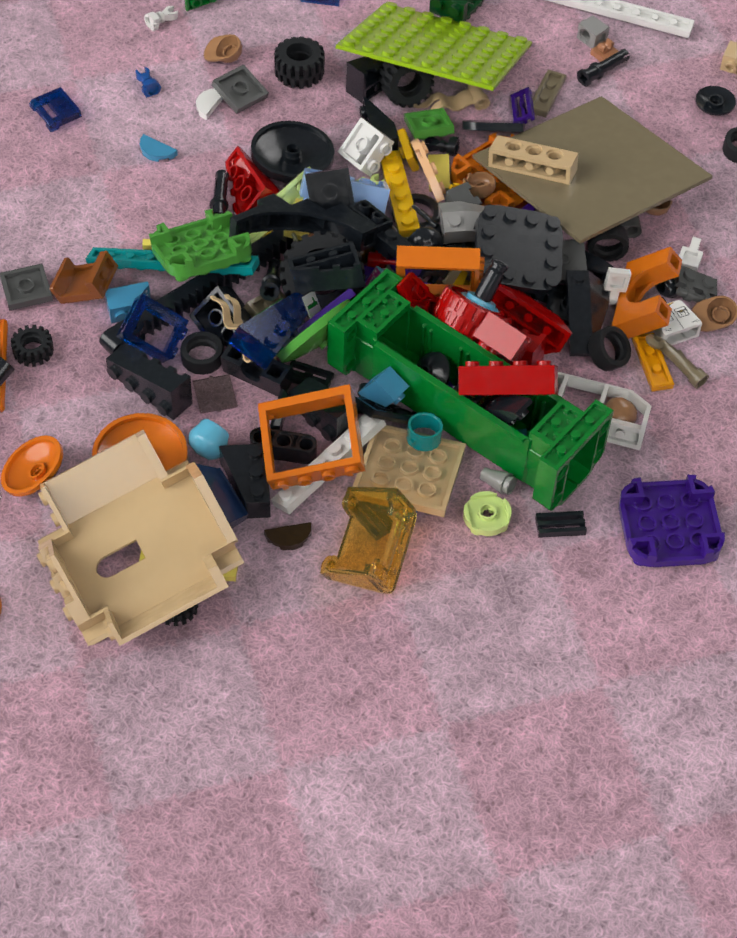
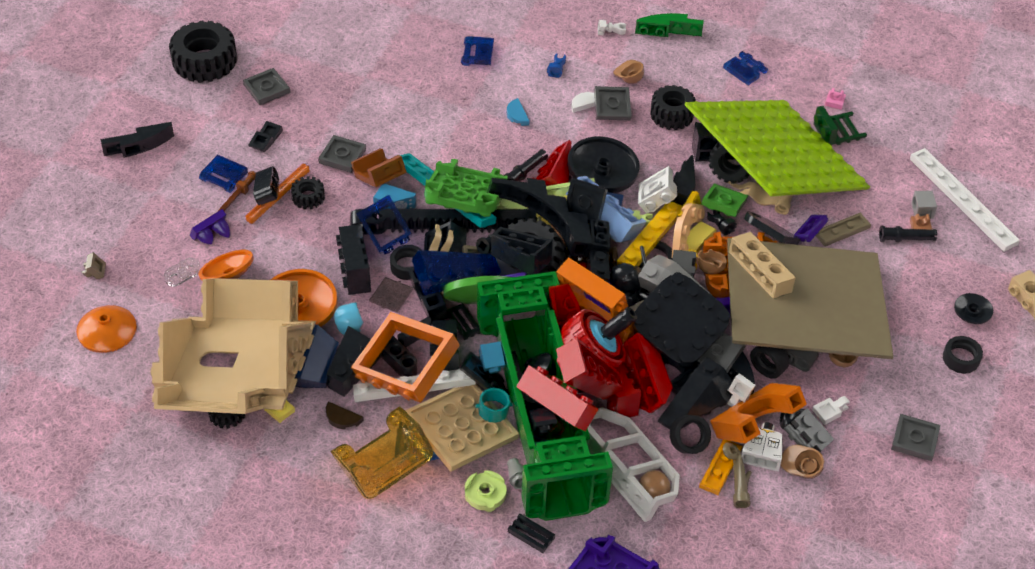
camera: 40 degrees right, 5 degrees down
(311, 304) = (495, 268): white sticker -> none

